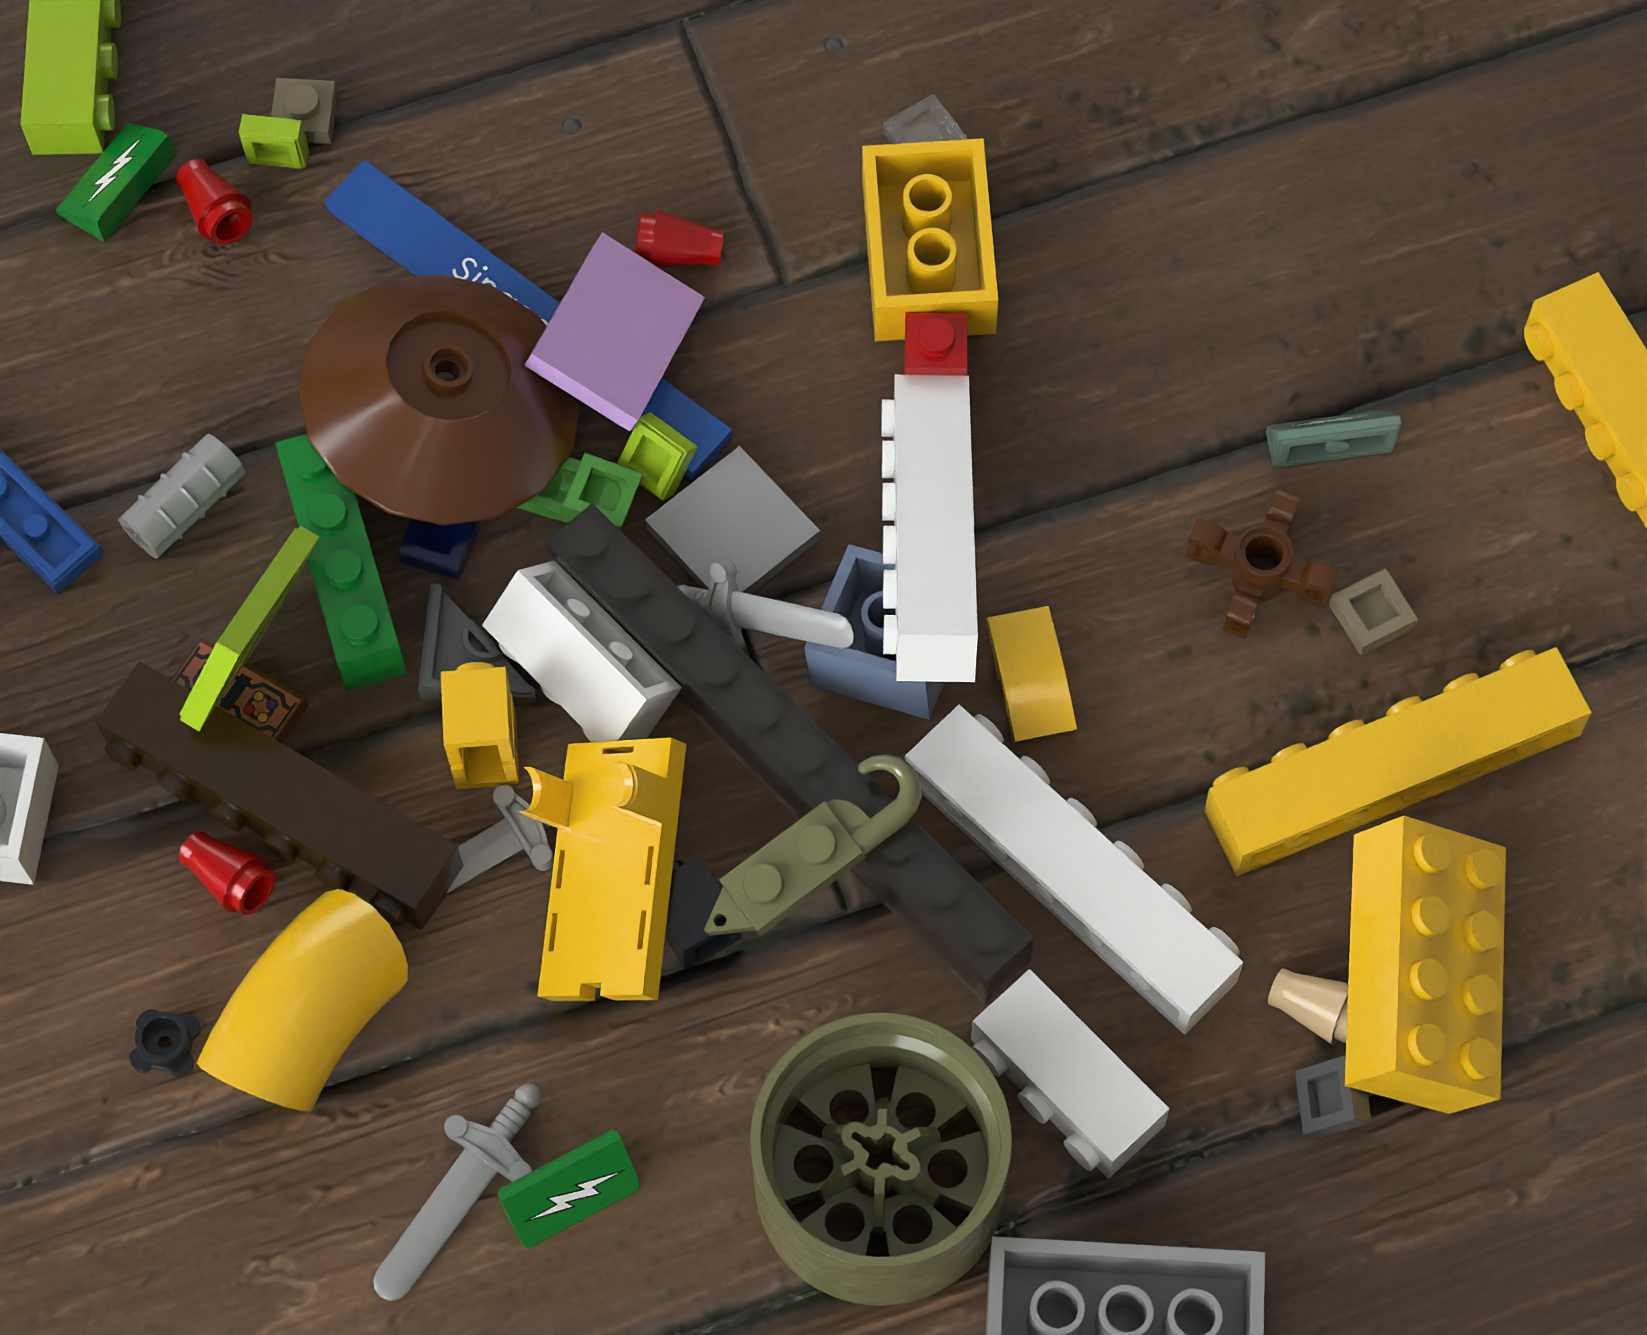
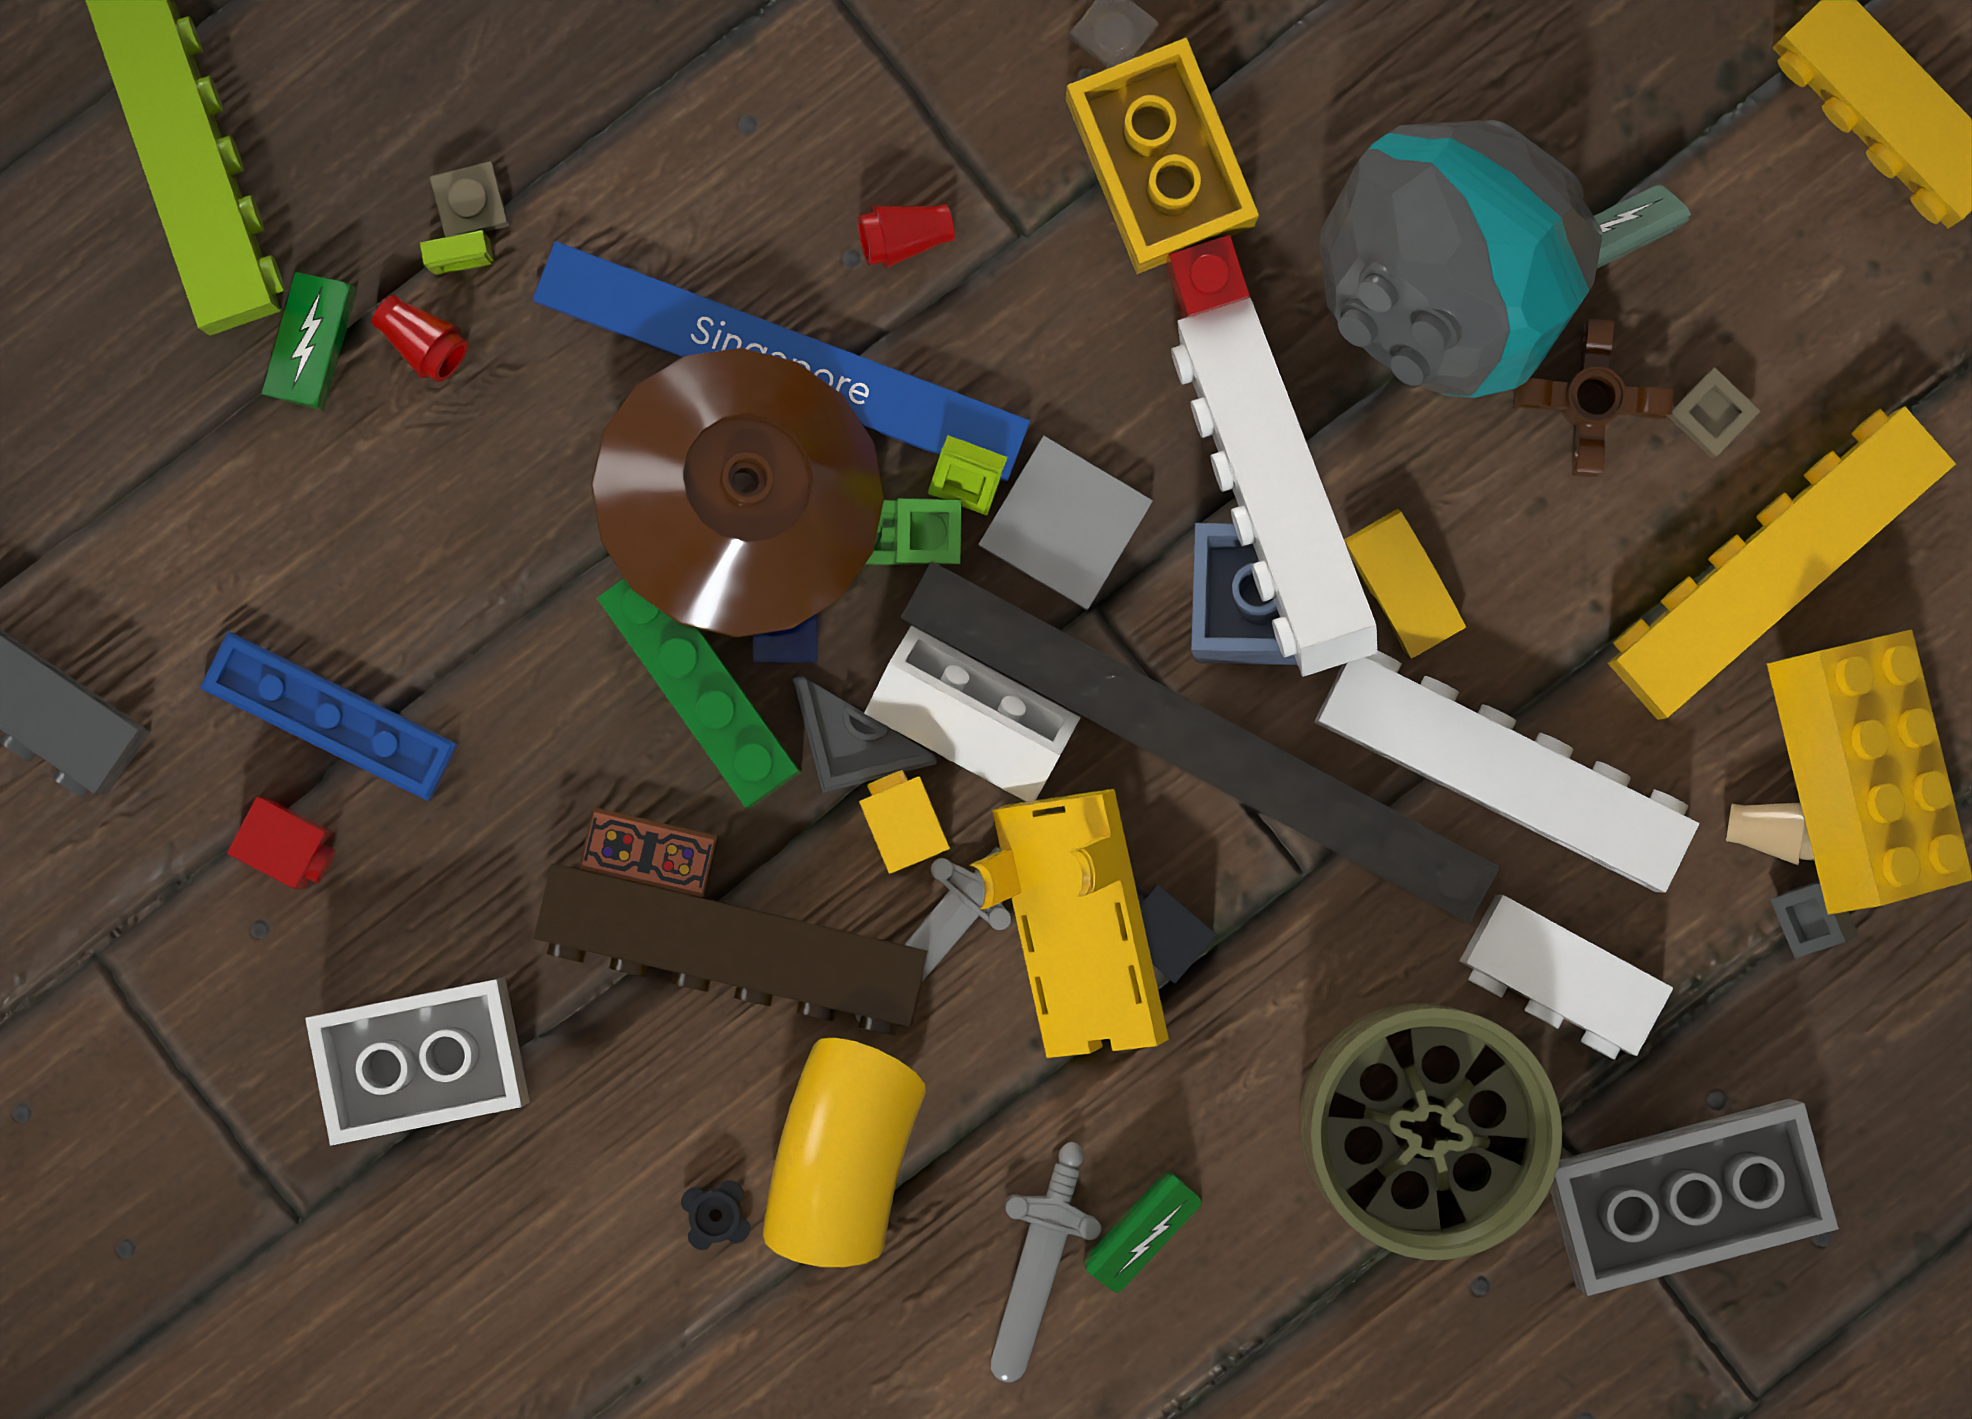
camera: 20 degrees left, 20 degrees up
(182, 496) = (516, 667): light grey axle -> none
(231, 874) = (712, 1034): red cone -> none
(248, 627) = (651, 807): lime tile -> none
(615, 332) = (885, 363): lavender tile -> none
(739, 610) = (1100, 621): light grey sword -> none
(811, 855) = (1270, 858): olive plate -> none
(1171, 381) = (1458, 255): none -> dark grey rock

